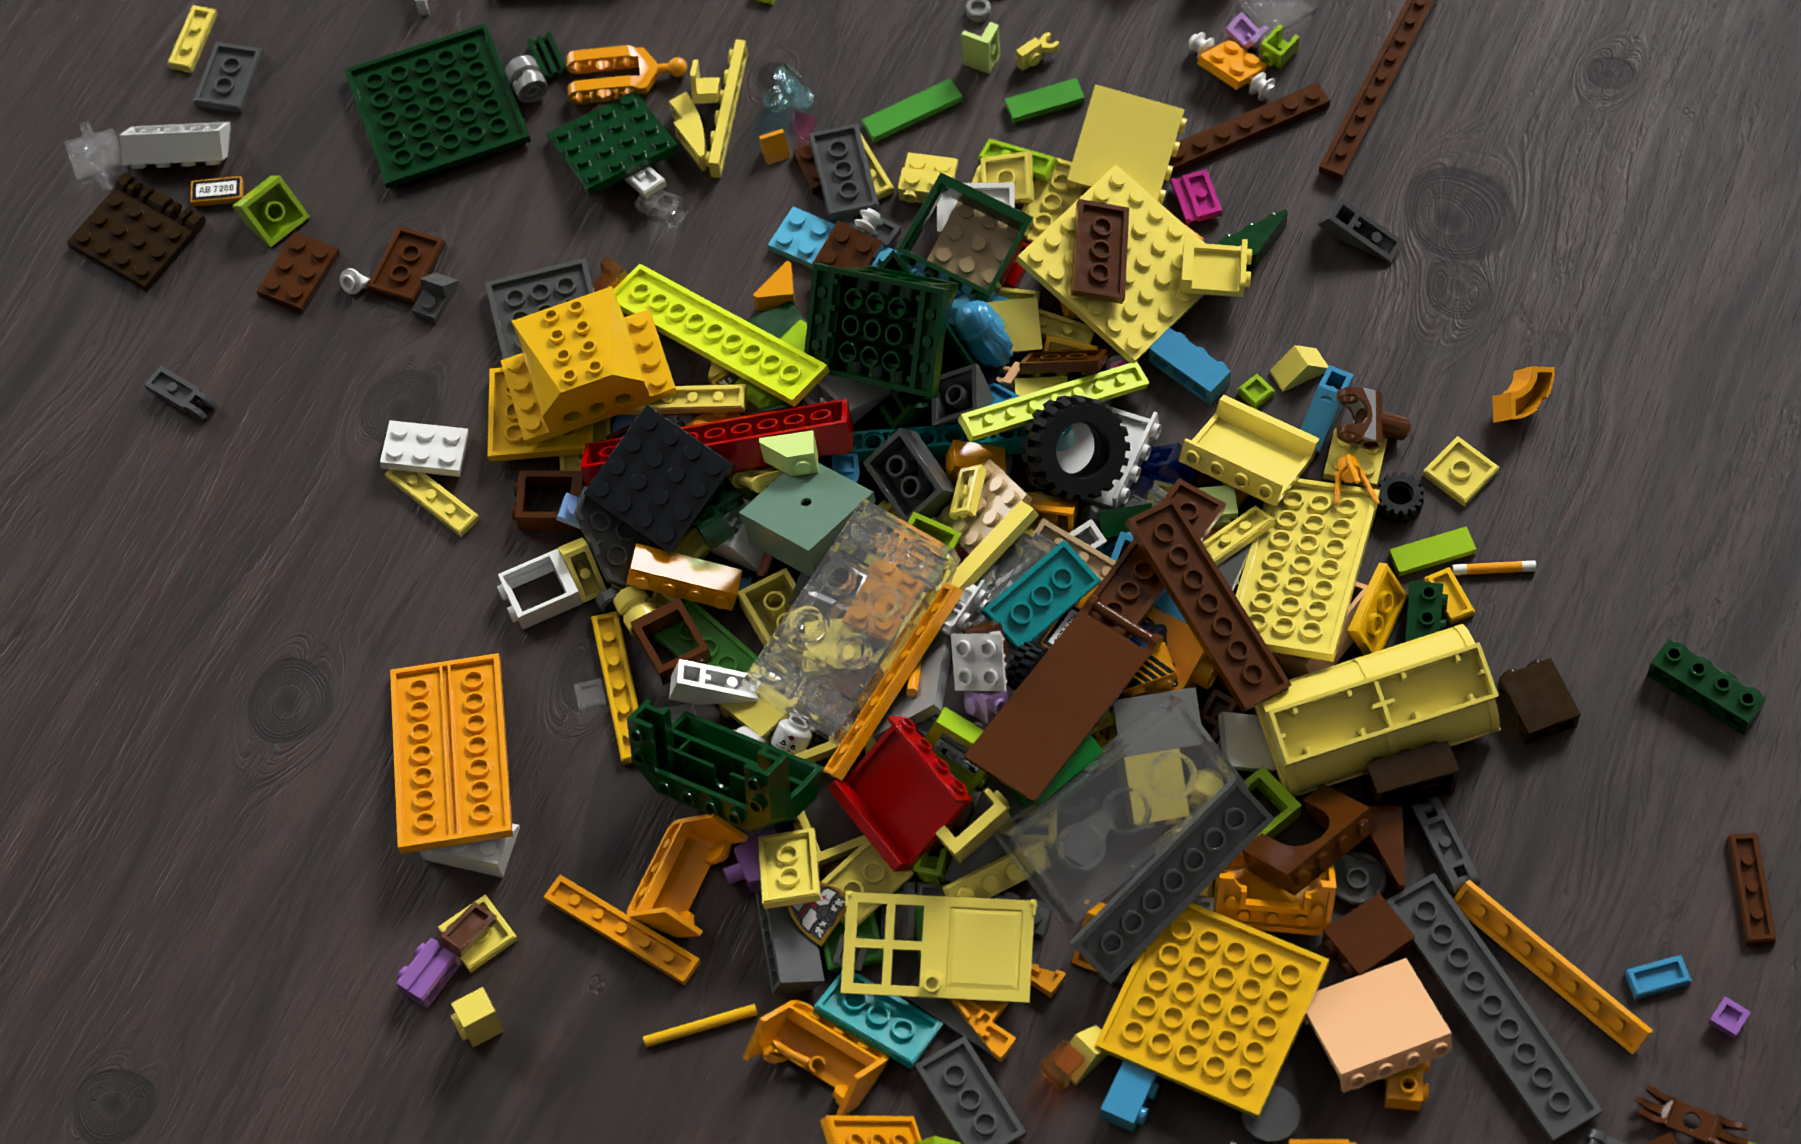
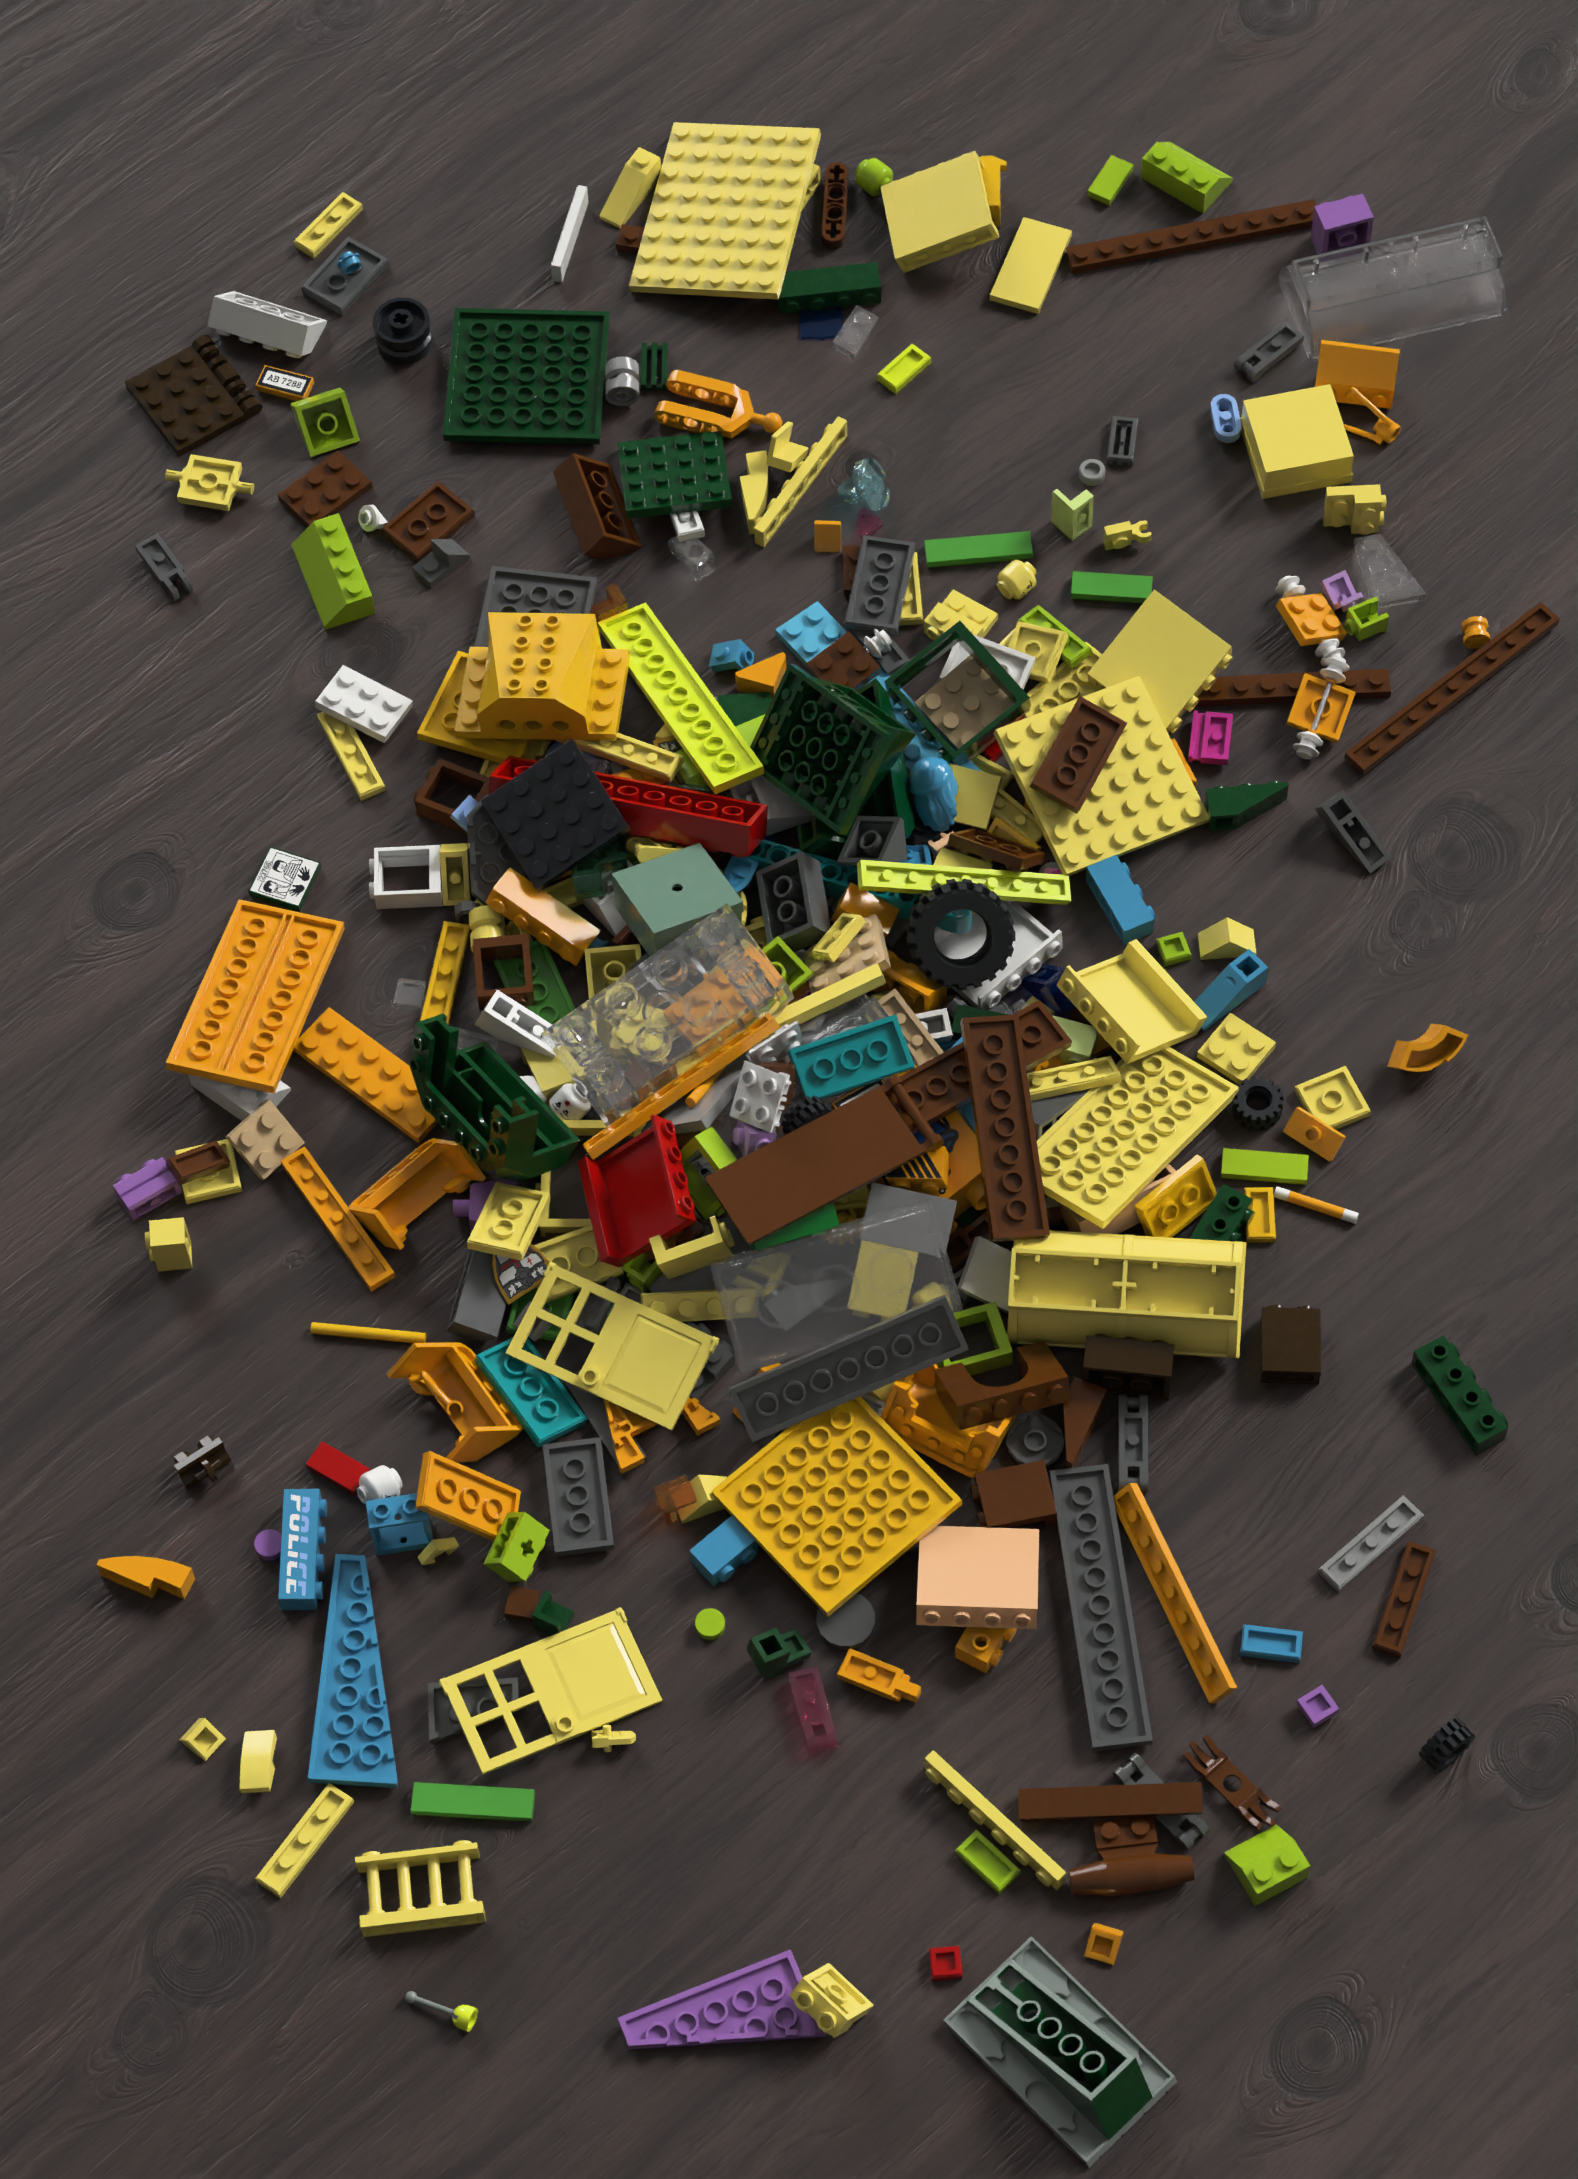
camera: 20 degrees right, 0 degrees up
(95, 156) = (186, 308): clear plate -> none
(187, 303) = (209, 482): none -> light yellow plate
(229, 63) = (349, 262): none -> dark azure plate
(305, 105) = (402, 331): none -> black wheel
(341, 341) = (333, 572): none -> lime slope
(424, 634) = (284, 879): none -> tile
(520, 882) = (264, 1139): none -> tan plate
(554, 197) = (596, 507): none -> reddish brown slope
(586, 782) = (366, 1072): none -> light orange plate
(738, 282) = (730, 656): none -> dark azure bracket
(791, 453) = (688, 836): yellowish green slope -> none
(960, 123) = (1016, 579): none -> light yellow head
(1214, 268) = (1185, 813): light yellow panel -> none
(1280, 135) = (1321, 707): none -> light orange plate
(1351, 472) = (1217, 1059): light orange plant -> none
(1369, 419) = (1262, 1016): reddish brown connector -> none
(1376, 24) = (1475, 632): none -> light orange wheel
(1462, 506) = (1314, 1134): none -> light orange plate
(1697, 851) = (1371, 1544): none -> light grey tile

